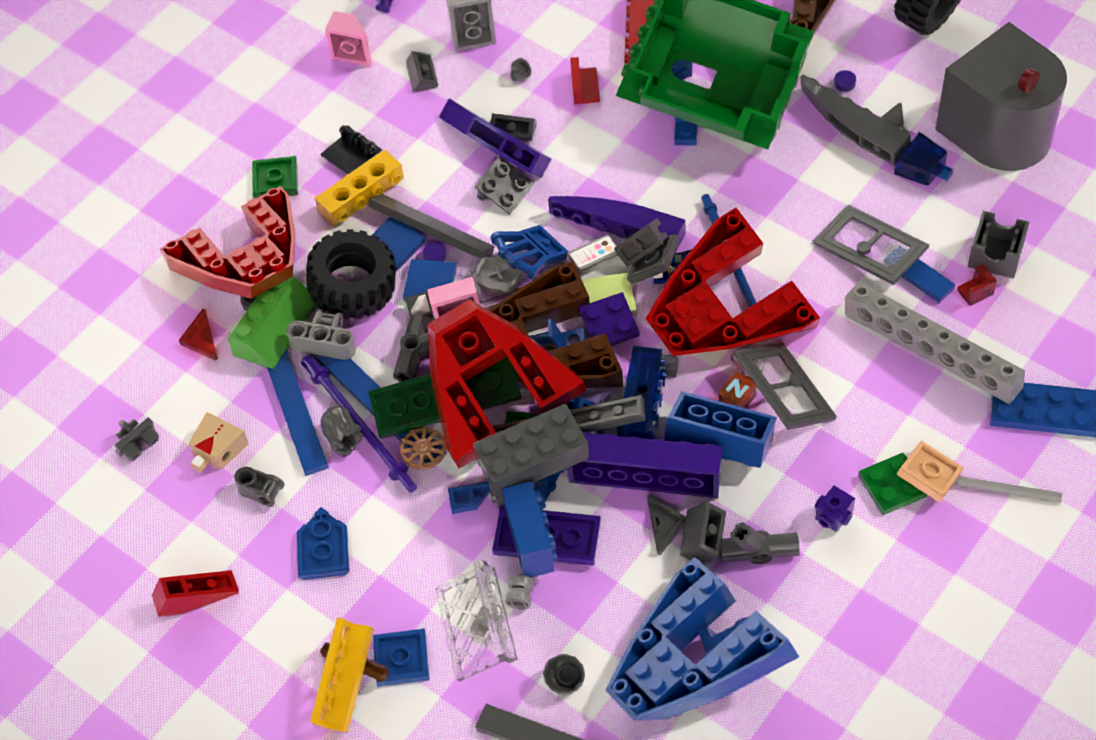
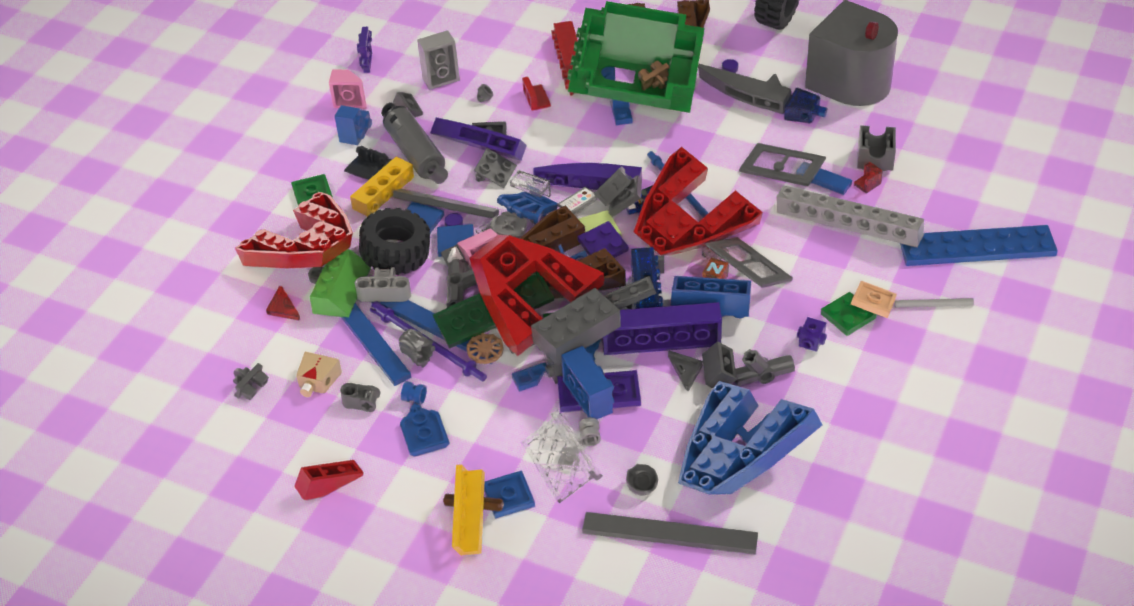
camera: 15 degrees left, 10 degrees down
(323, 493) = (413, 393): none -> blue wheel
(344, 91) = (352, 124): none -> blue brick
(412, 132) = (414, 143): none -> dark grey piece
(539, 219) = (531, 184): none -> clear panel
(739, 88) = (656, 77): none -> medium nougat hips

